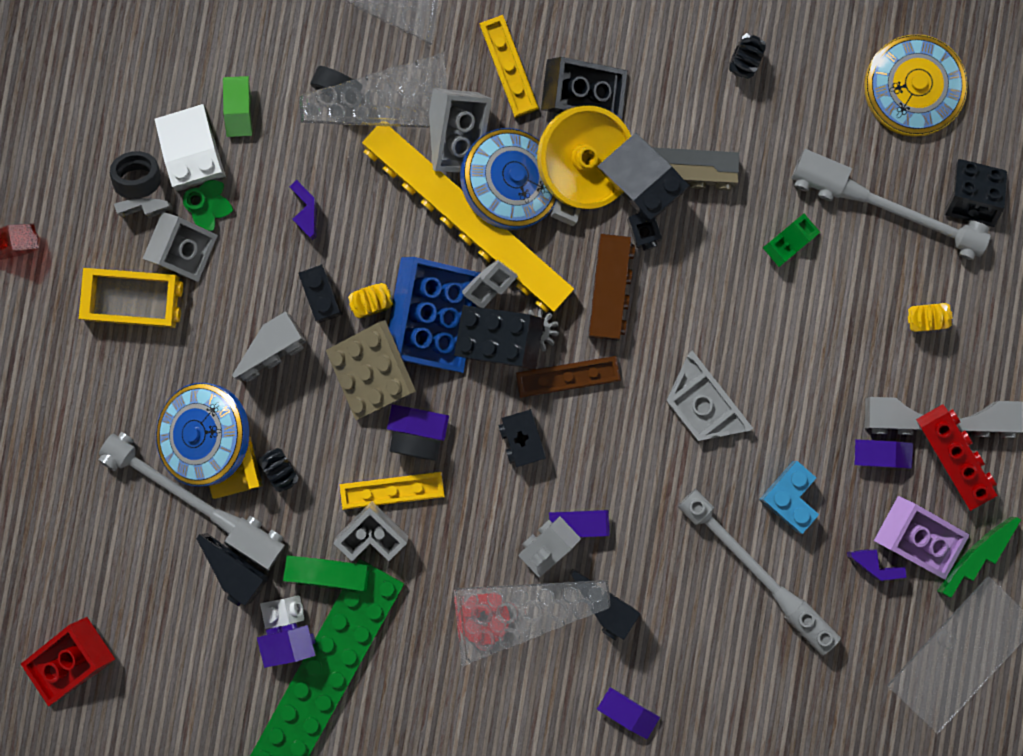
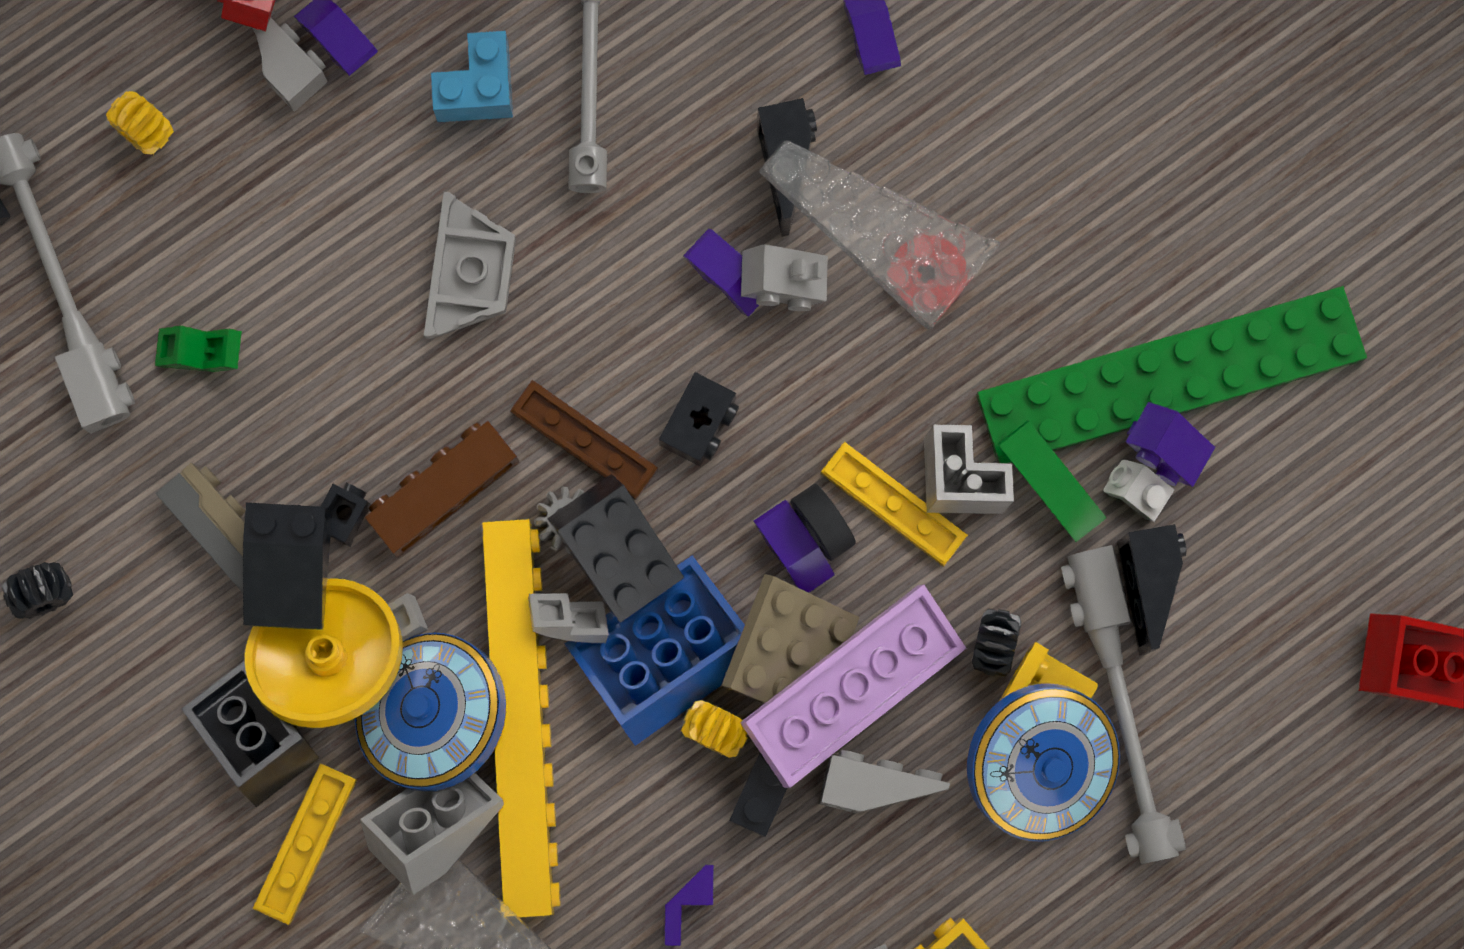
camera: 135 degrees left, 5 degrees down
(324, 382) = (853, 686): none -> lavender plate

